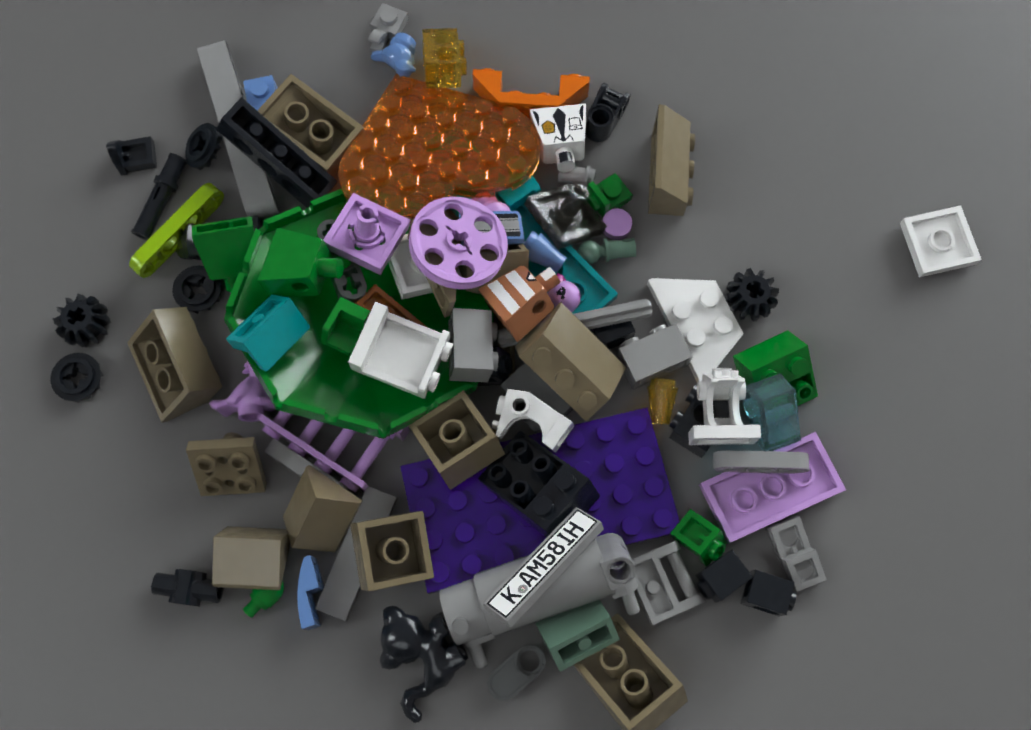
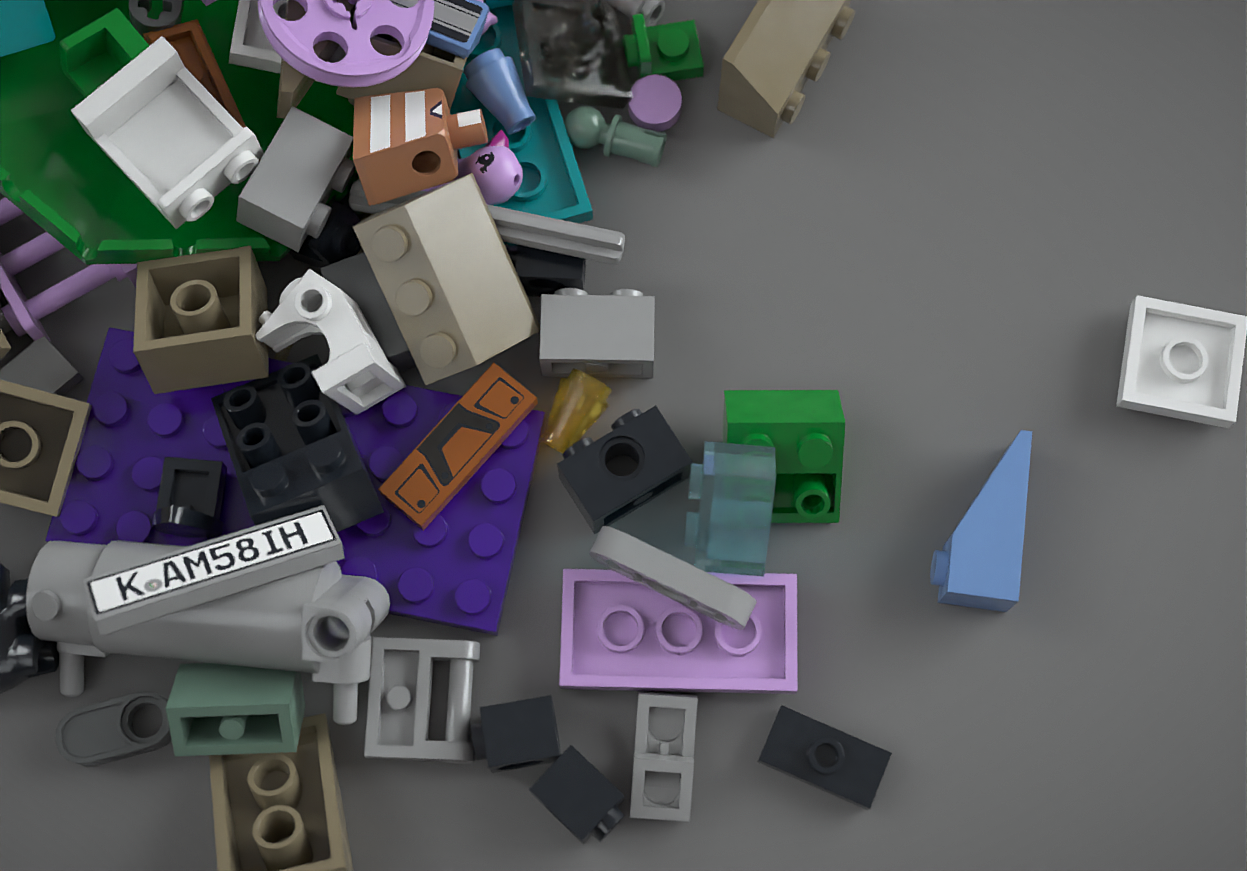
camera: 25 degrees right, 0 degrees up
(495, 535) = (190, 498): none -> black tile
(617, 444) = (458, 446): none -> dark orange tile
(700, 537) = (517, 655): green bracket -> none
(701, 318) = (704, 314): white wing -> none
(728, 386) = (663, 422): white tile -> none
(763, 299) = (816, 289): black gear -> none
(873, 516) = (824, 757): none -> black plate
(896, 372) = (985, 549): none -> medium blue slope

